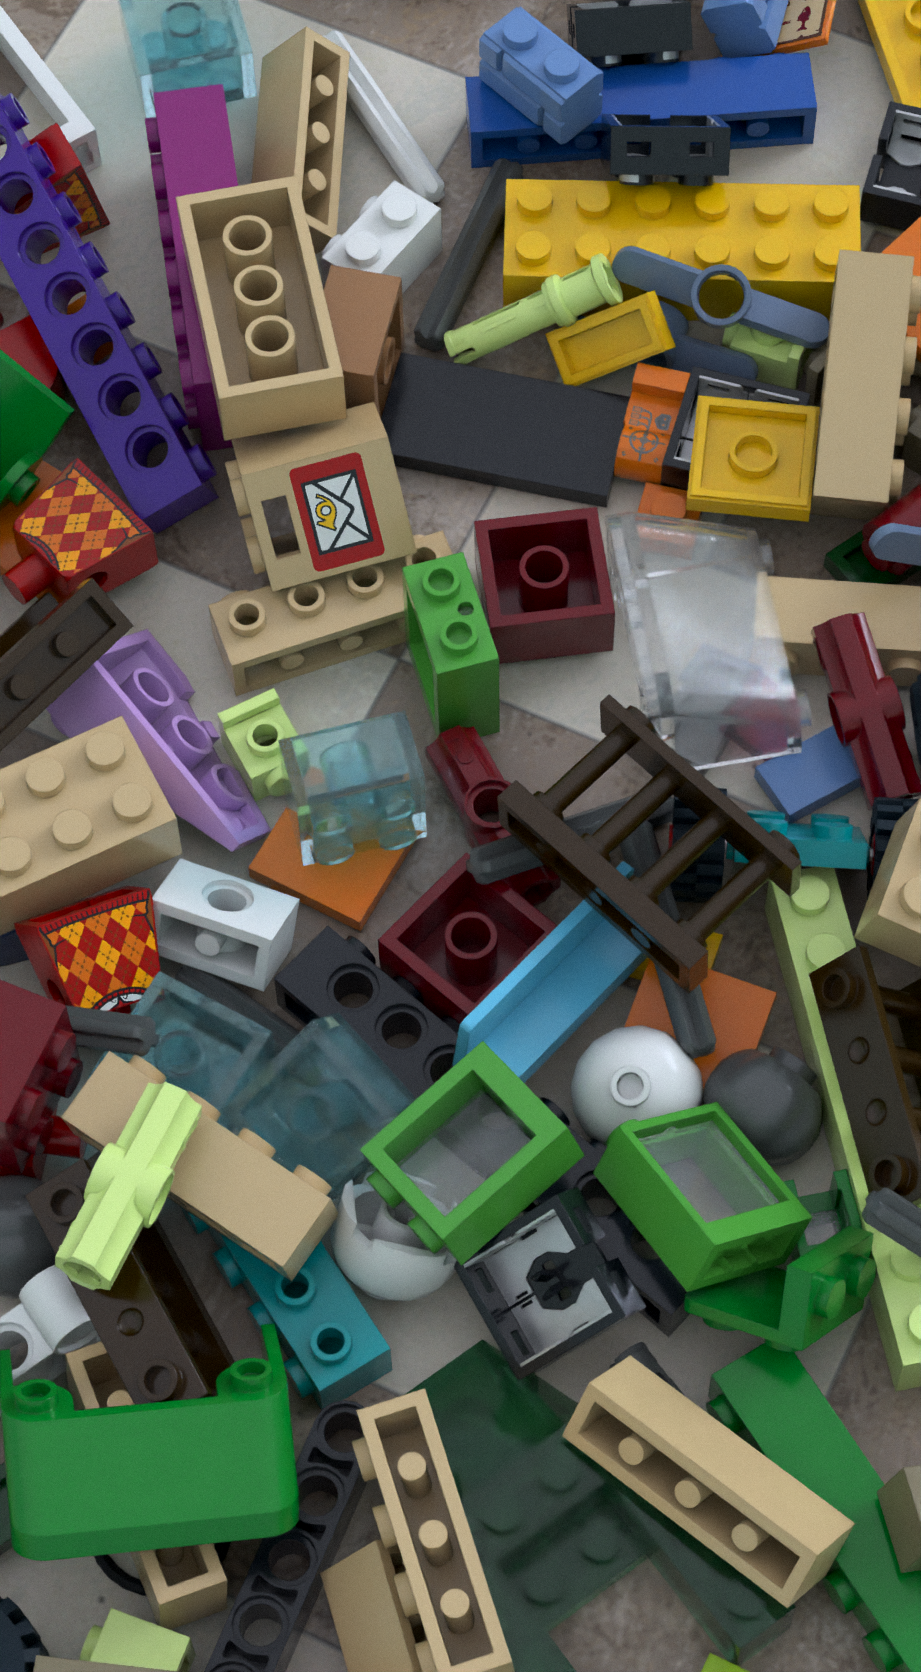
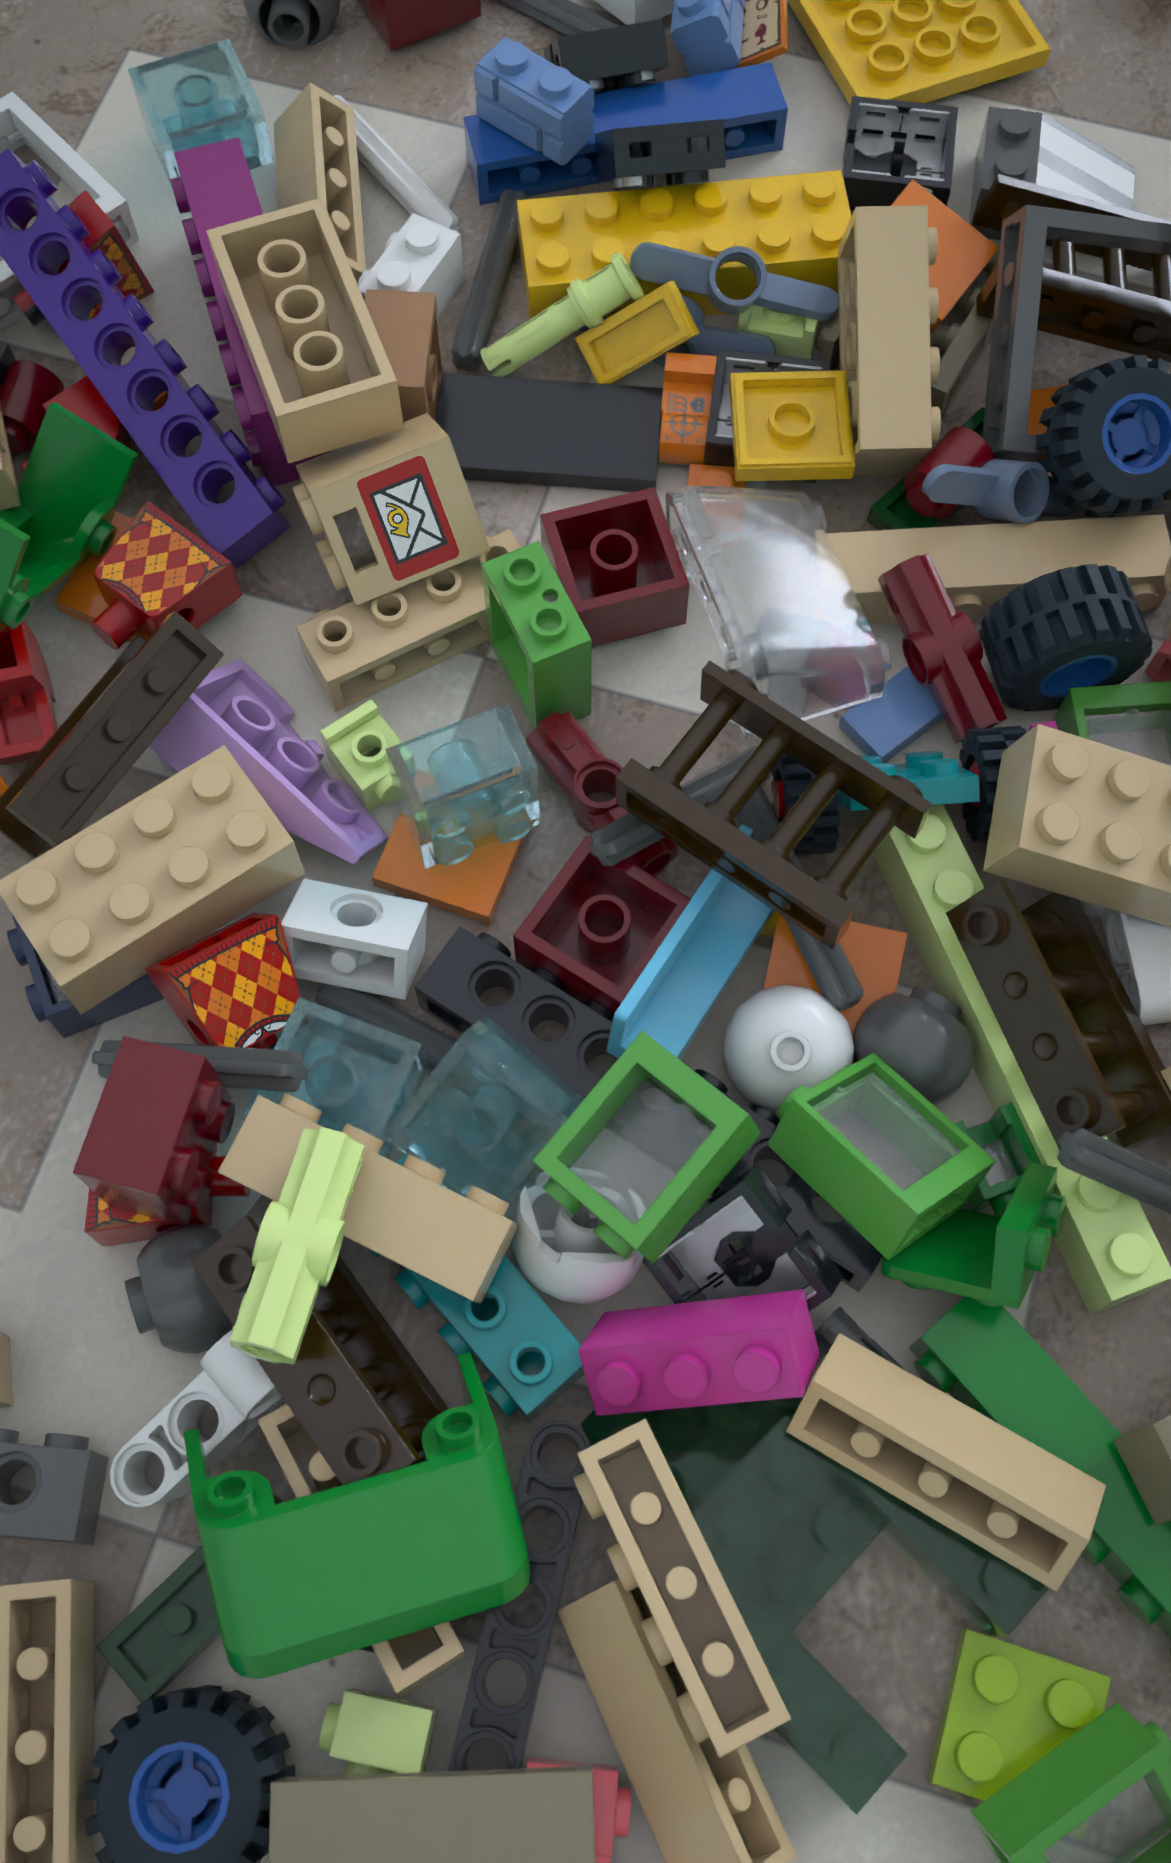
camera: 10 degrees left, 5 degrees up
(494, 1353) = (701, 1353): none -> dark pink brick

